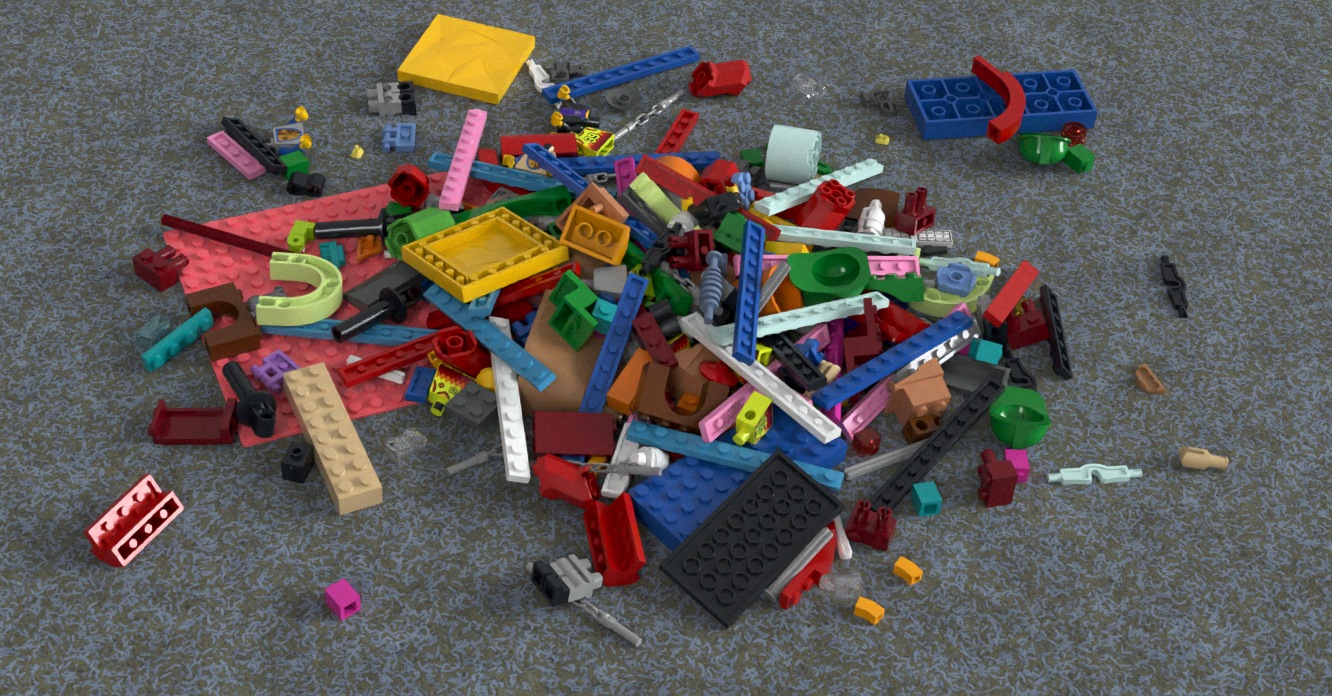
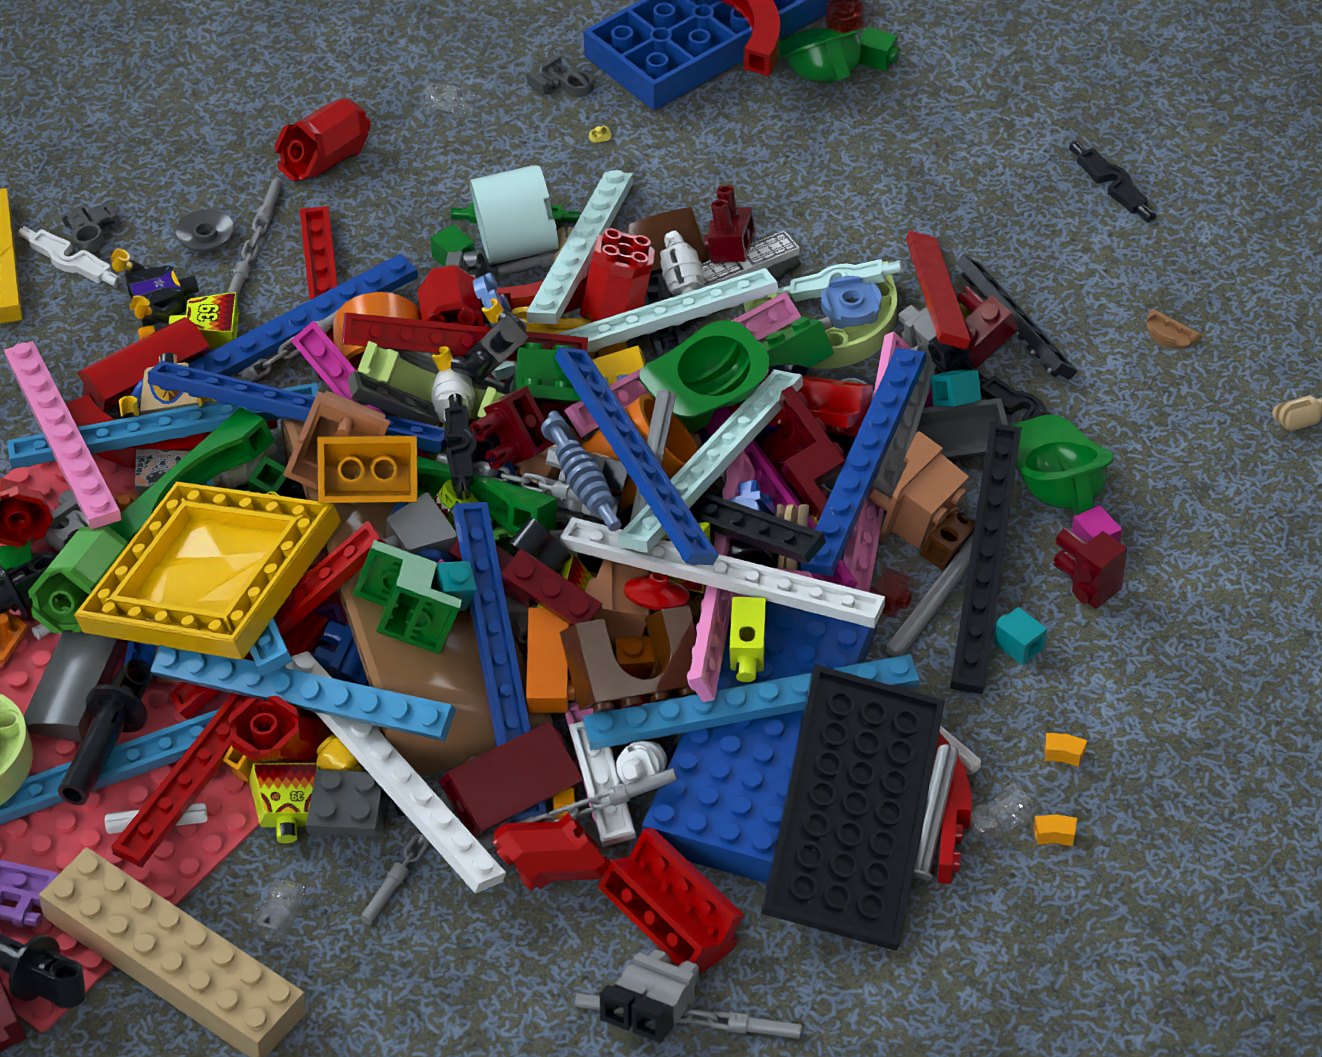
camera: 25 degrees left, 5 degrees up
(297, 462) = (147, 1016): black head -> none
(420, 384) = (239, 809): blue plate -> none
(623, 73) = (175, 192): blue plate -> none
(871, 527) = (983, 711): dark red brick -> none
(987, 258) = (858, 253): light orange piece -> none
(1083, 476) = (1183, 505): light aqua piece -> none

